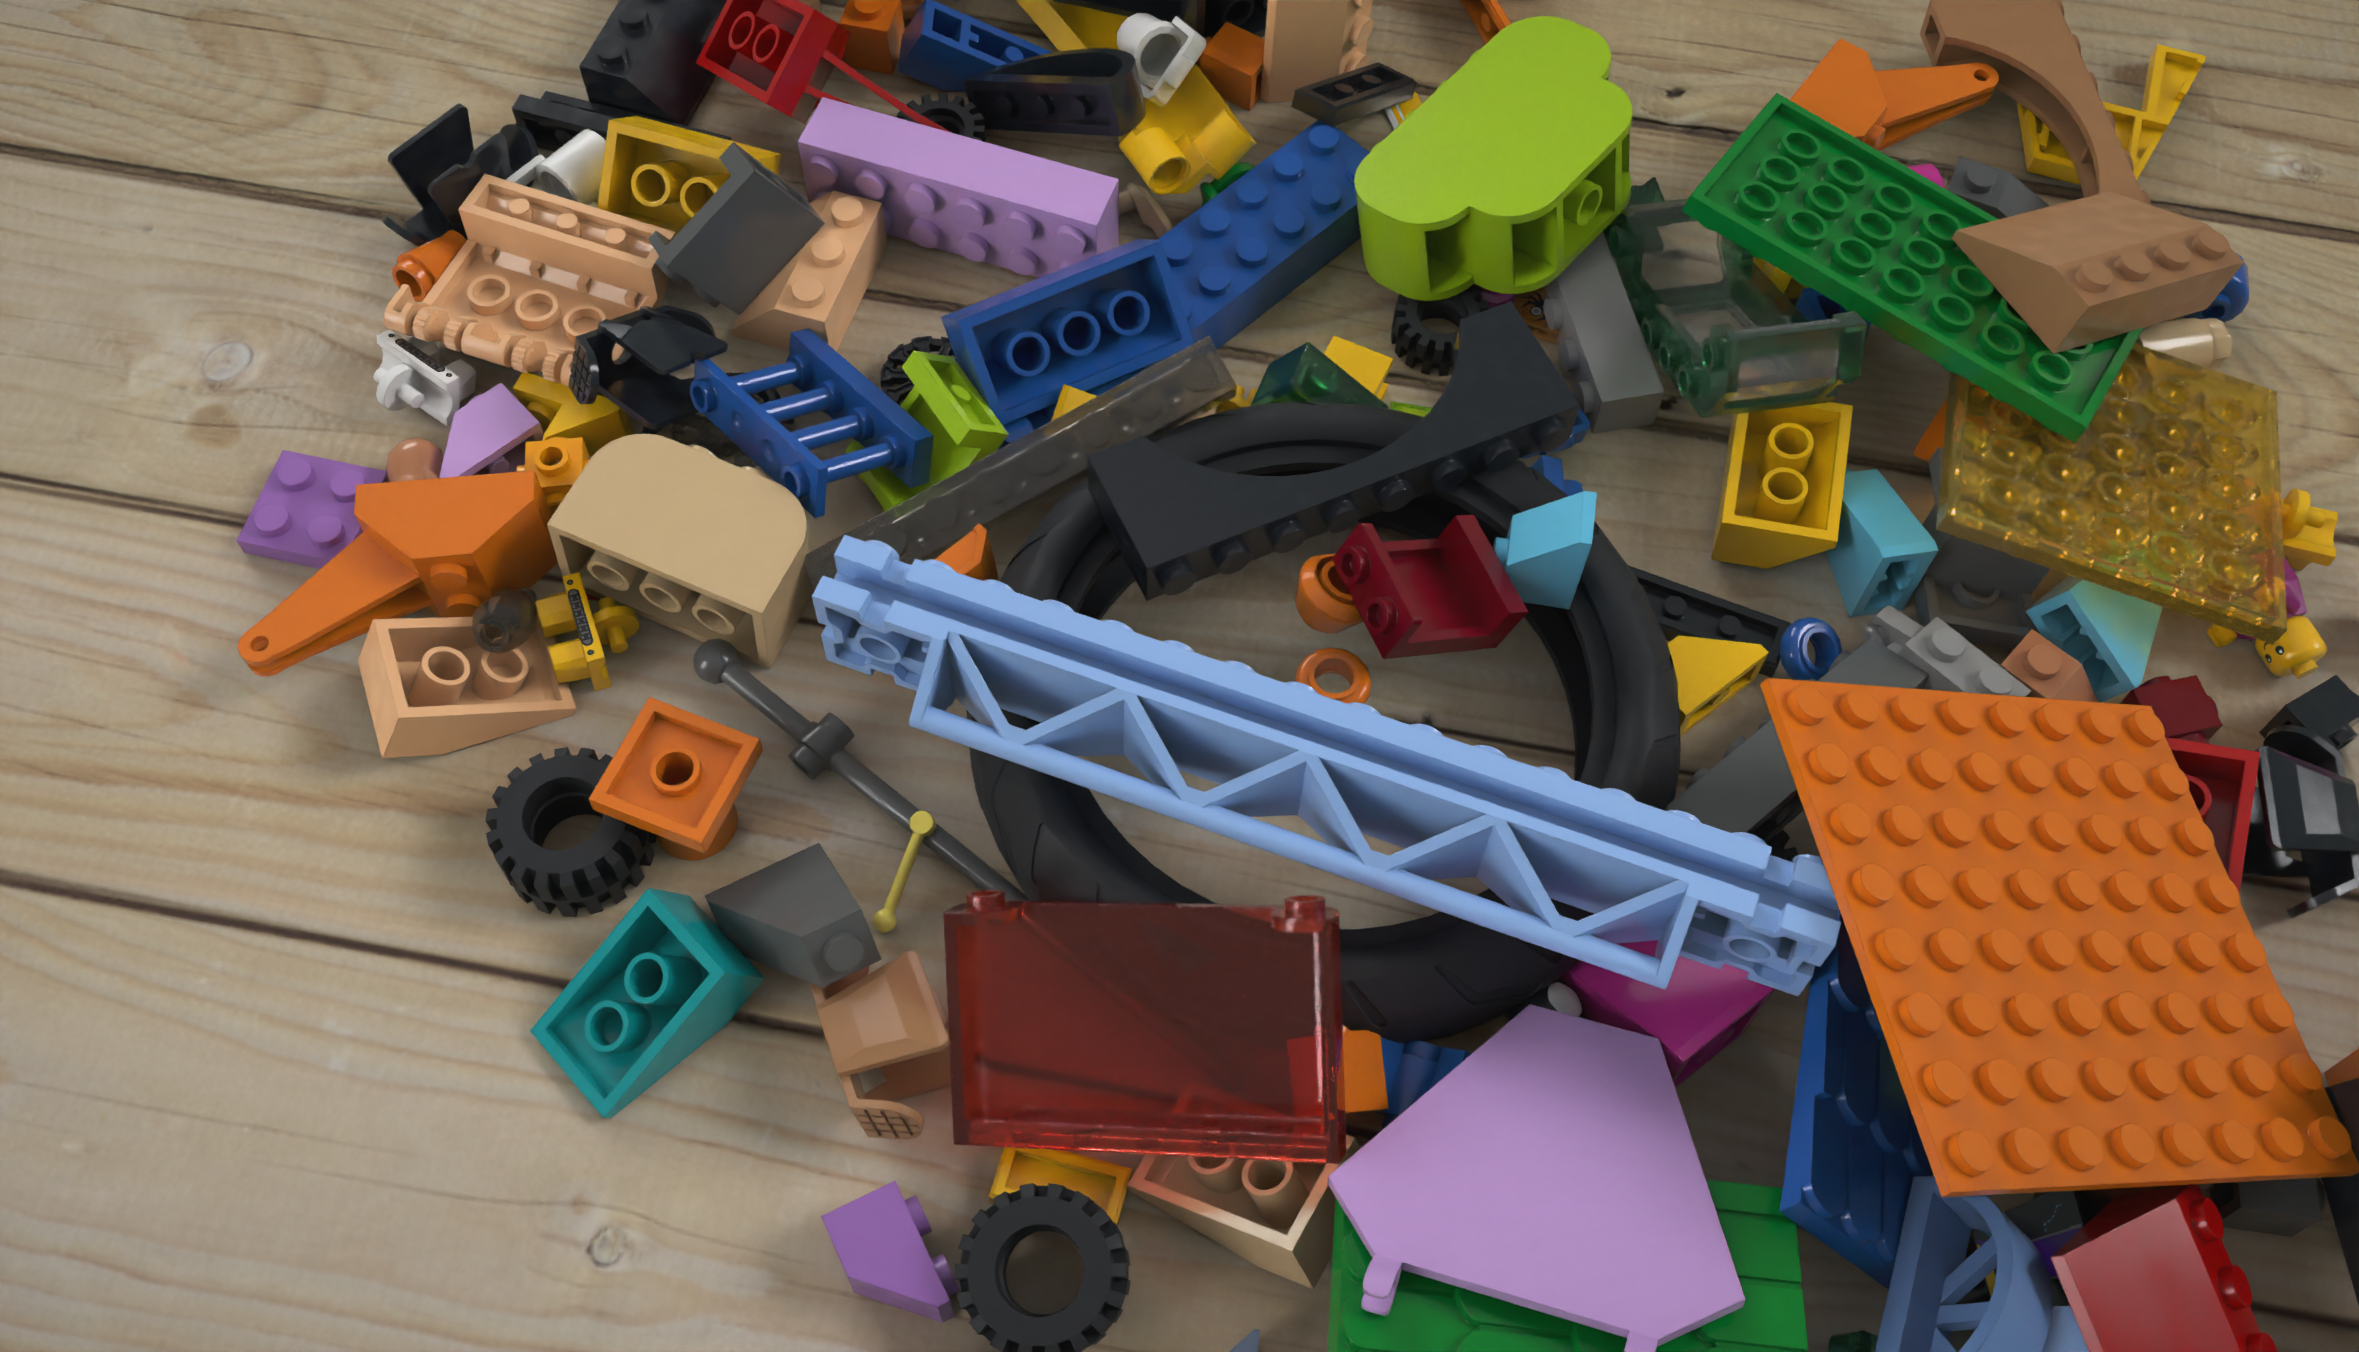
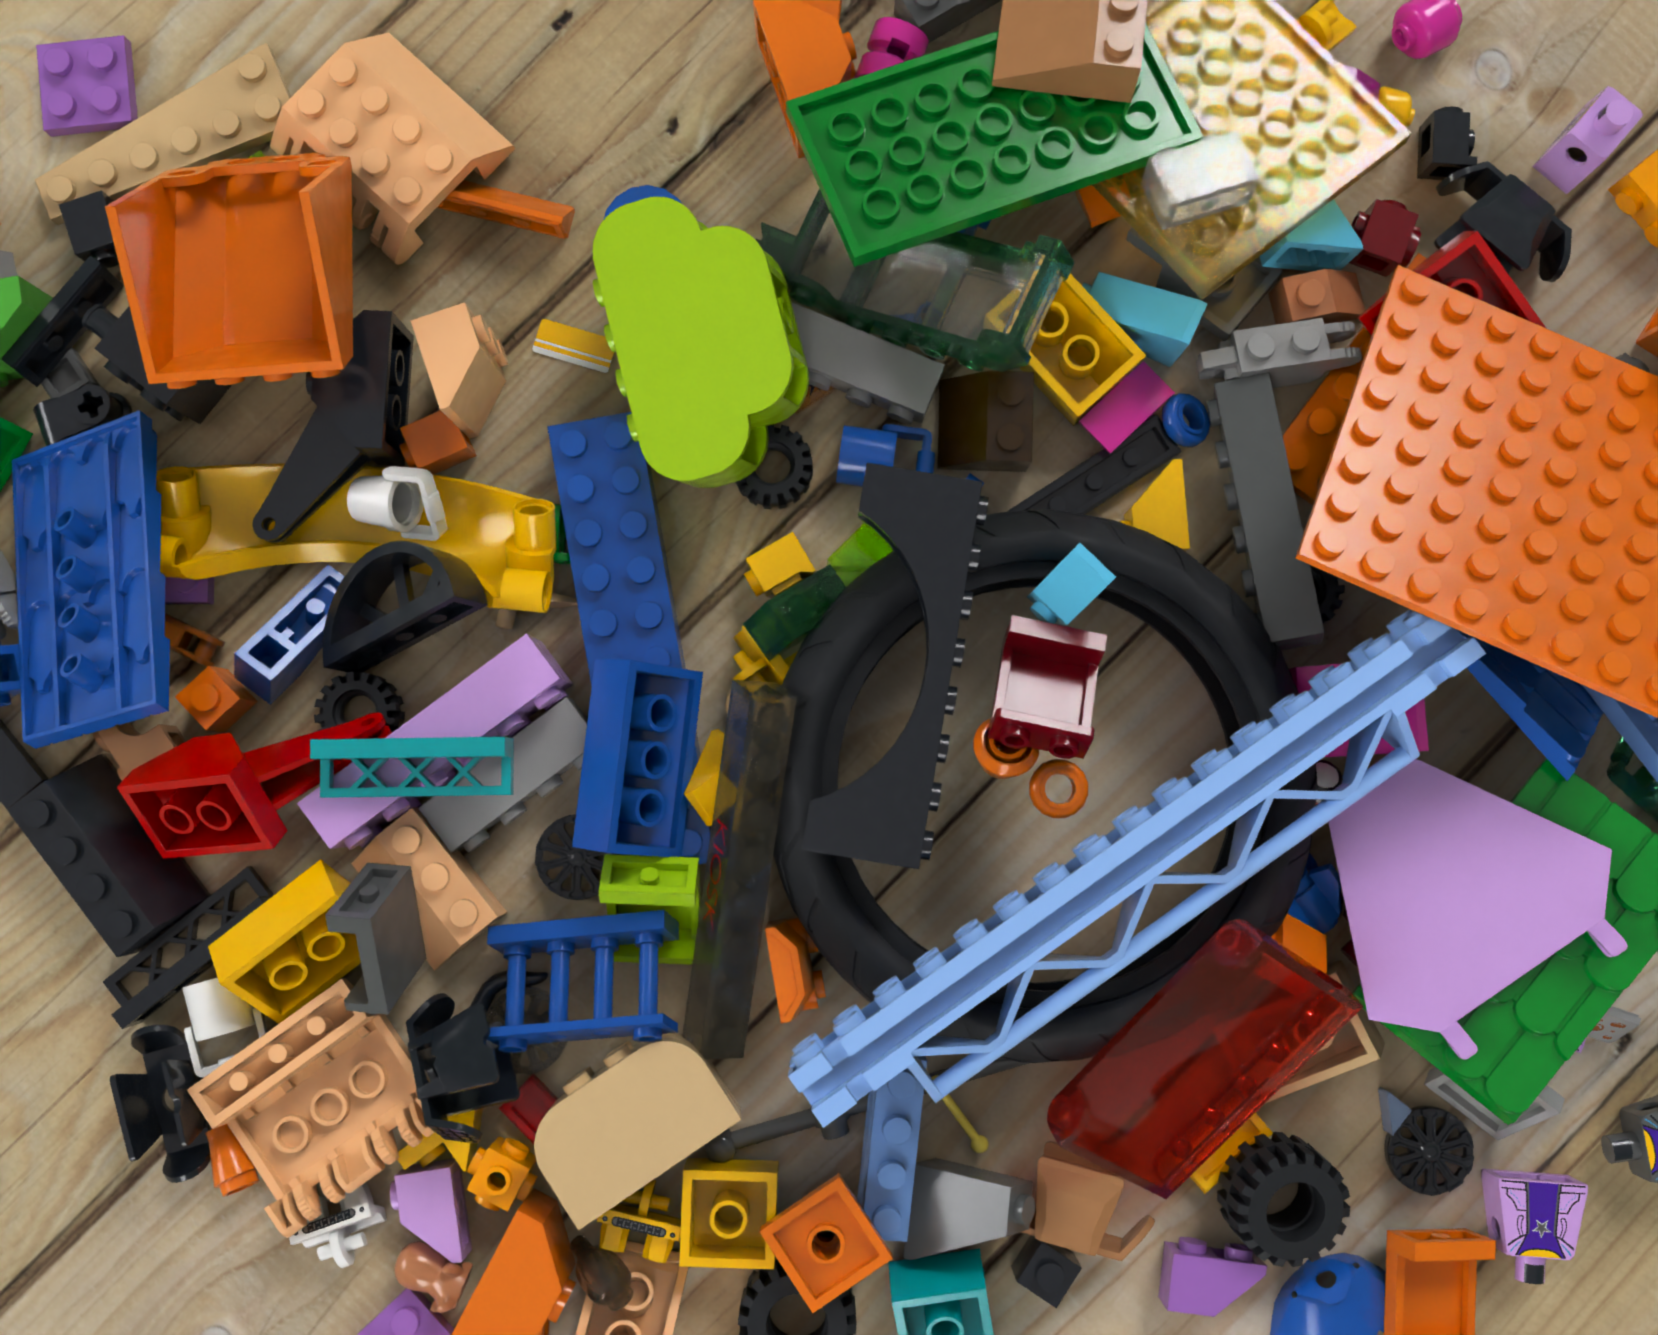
camera: 55 degrees left, 25 degrees up
(640, 664) = (725, 1211): none -> yellow brick
(786, 1060) = (1046, 1270): none -> black brick
(833, 796) = (891, 1154): none -> medium blue brick
(941, 138) = (408, 748): none -> teal fence
(943, 268) = (540, 757): none -> light grey brick
(1354, 94) = (534, 381): black tile -> none
(1649, 477) = (986, 421): none -> dark brown slope
(1772, 582) = (1126, 407): none -> dark pink slope
(2043, 445) = (1199, 179): none -> clear brick

